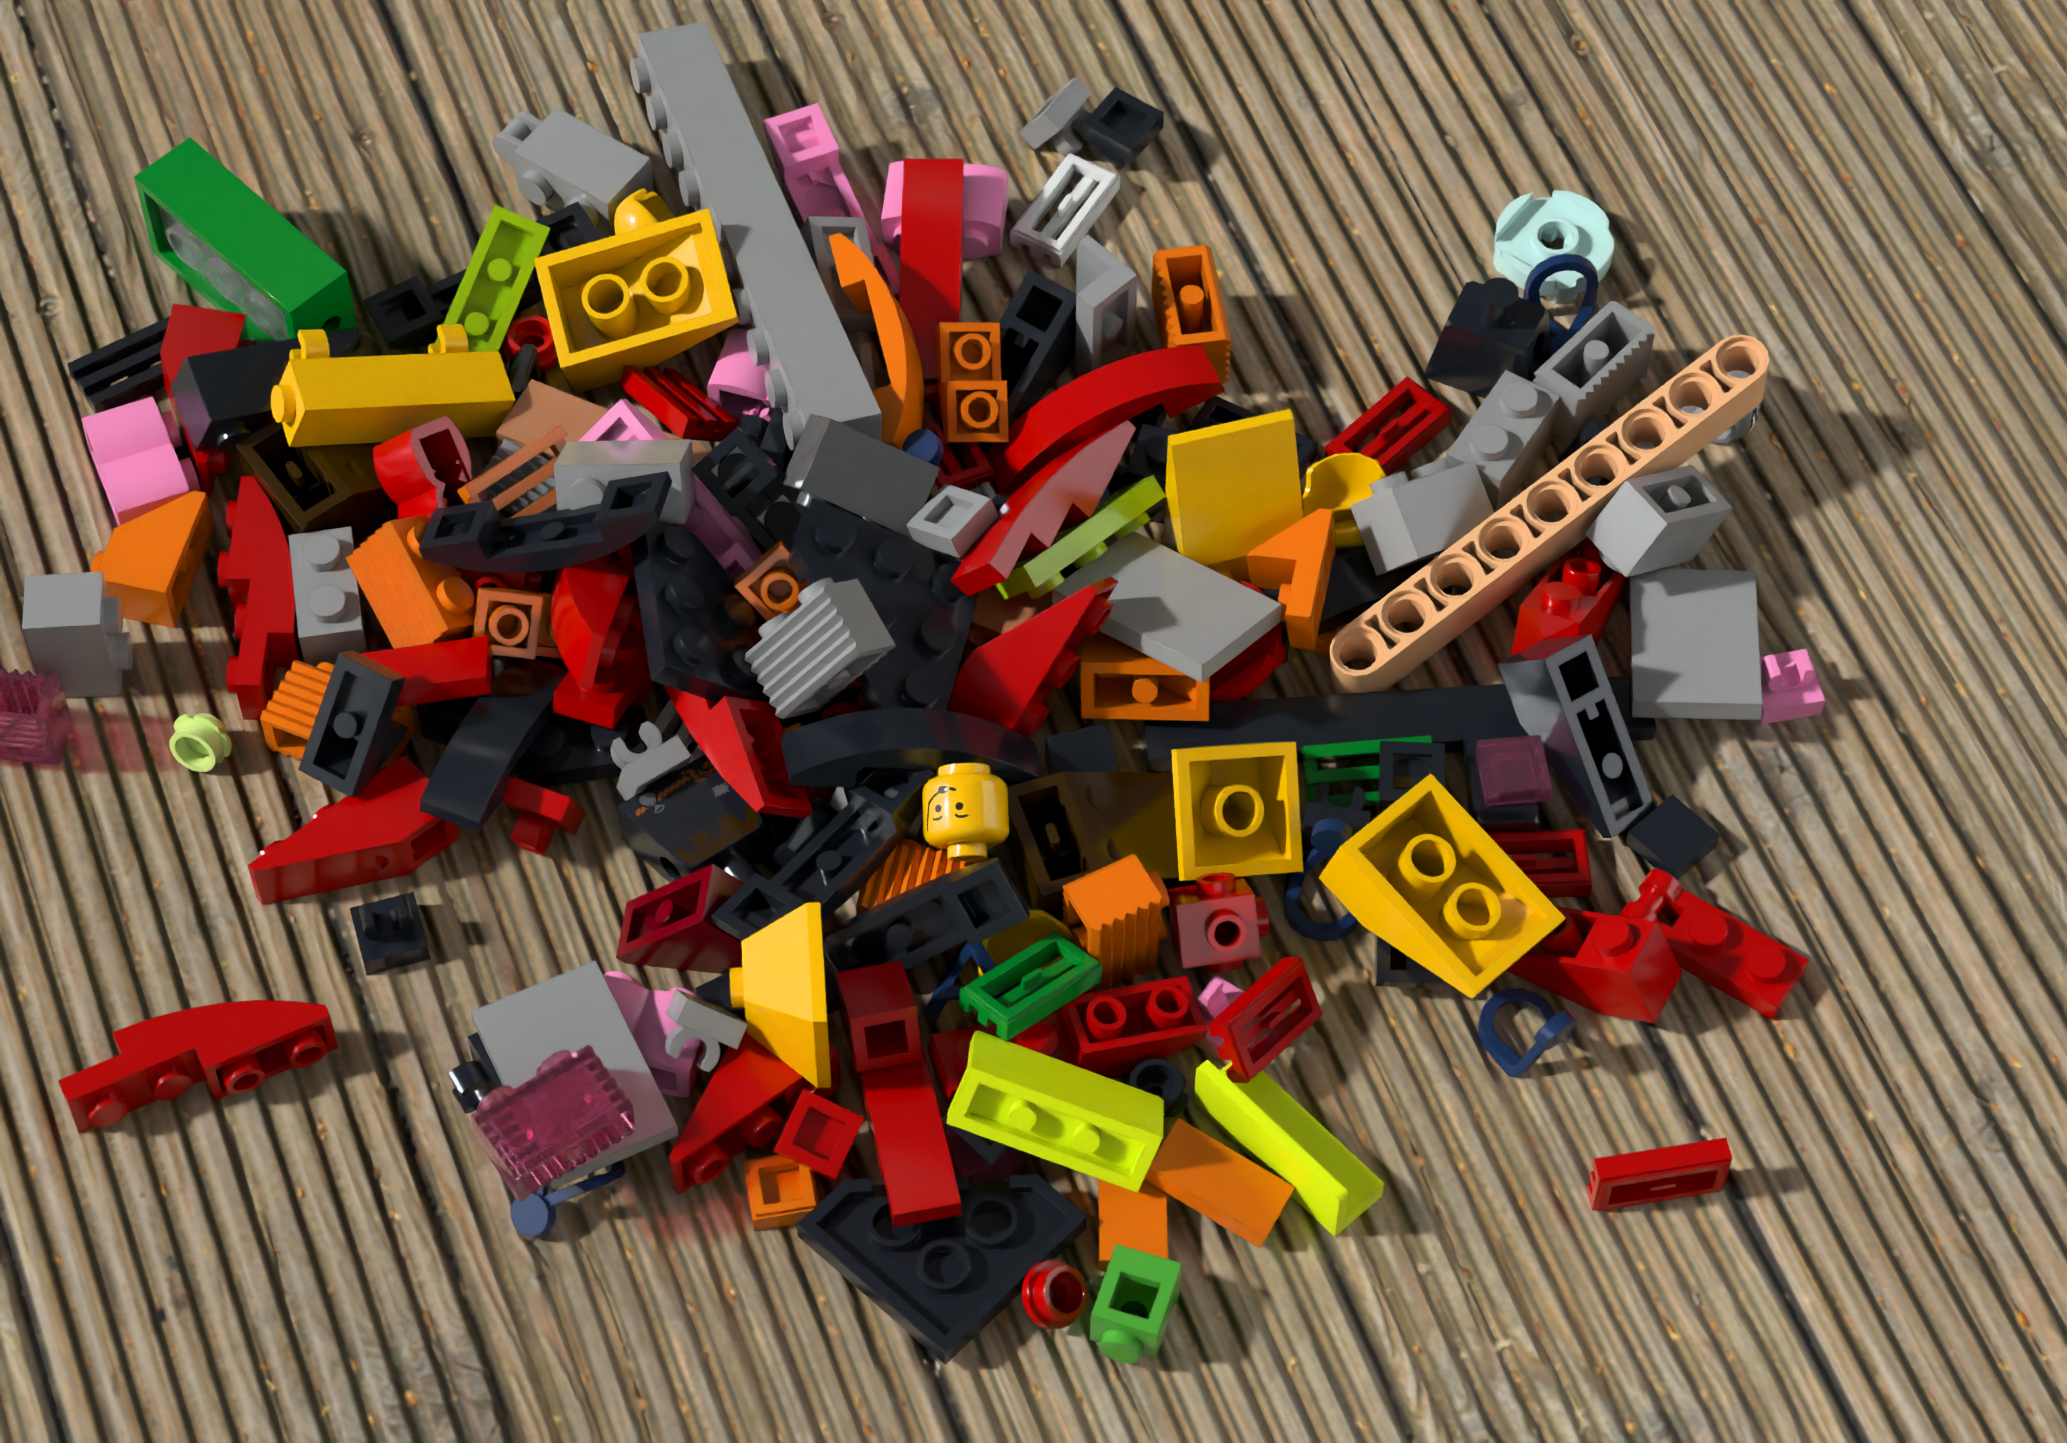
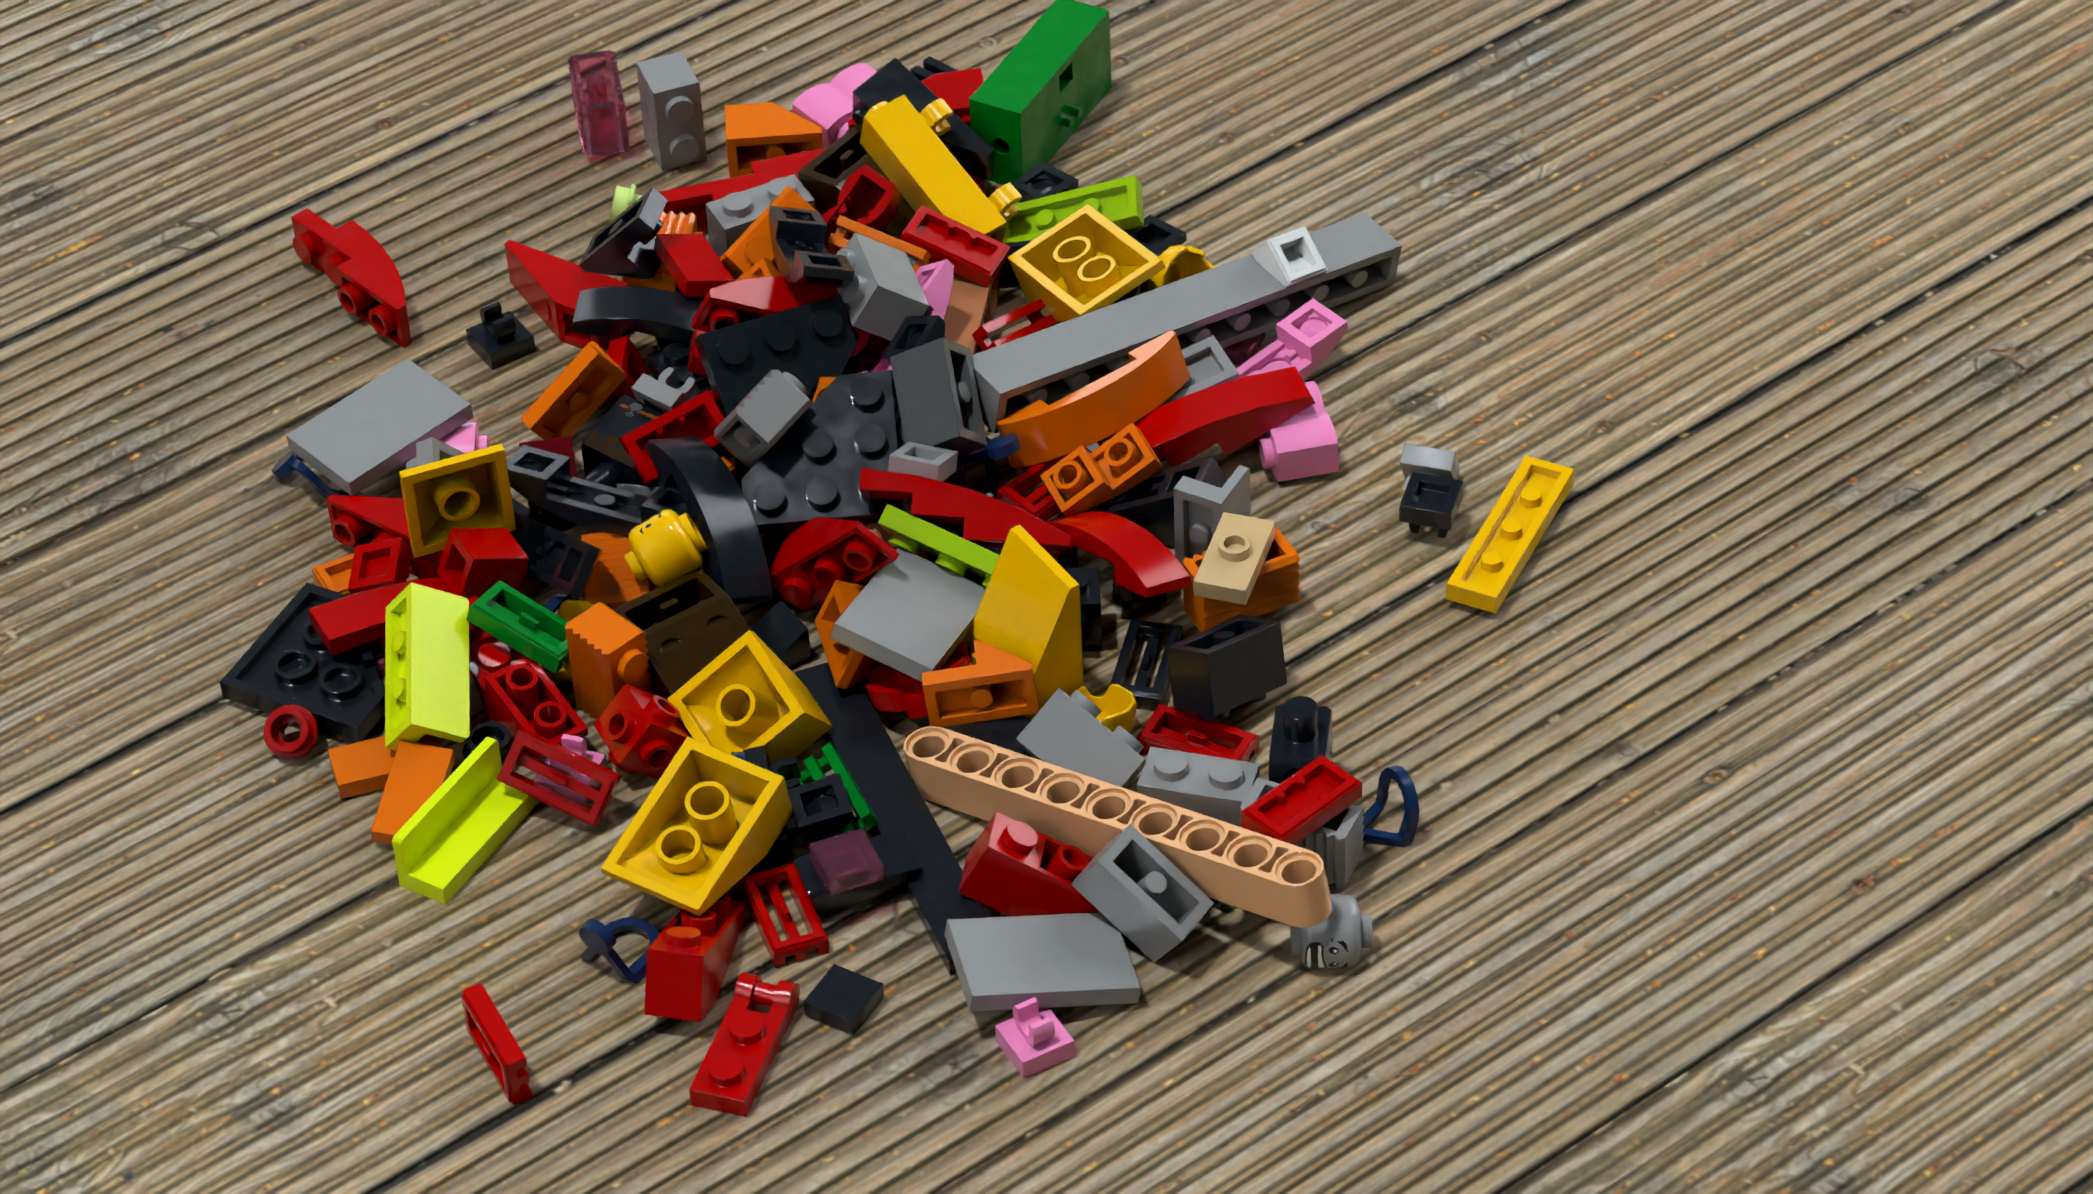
camera: 75 degrees right, 15 degrees down
(529, 407) = (969, 250): none -> red plate
(552, 1120) = (316, 408): clear pink brick -> none
(571, 865) = (574, 394): none -> orange panel
(572, 162) = (1231, 223): light grey brick -> none
(713, 110) = (1290, 257): none -> white slope
(1045, 242) = (1342, 505): white tile -> none
(1137, 1285) = (289, 770): bright green brick -> none
(1183, 83) = (1510, 534): none -> yellow plate
(1205, 294) = (1234, 558): none -> tan plate
(1329, 360) = (1227, 666): none -> black brick
(1563, 216) = (1462, 817): light aqua plate -> none
(1568, 700) = (902, 894): black slope -> none
(1617, 340) = (1303, 802): none -> red plate

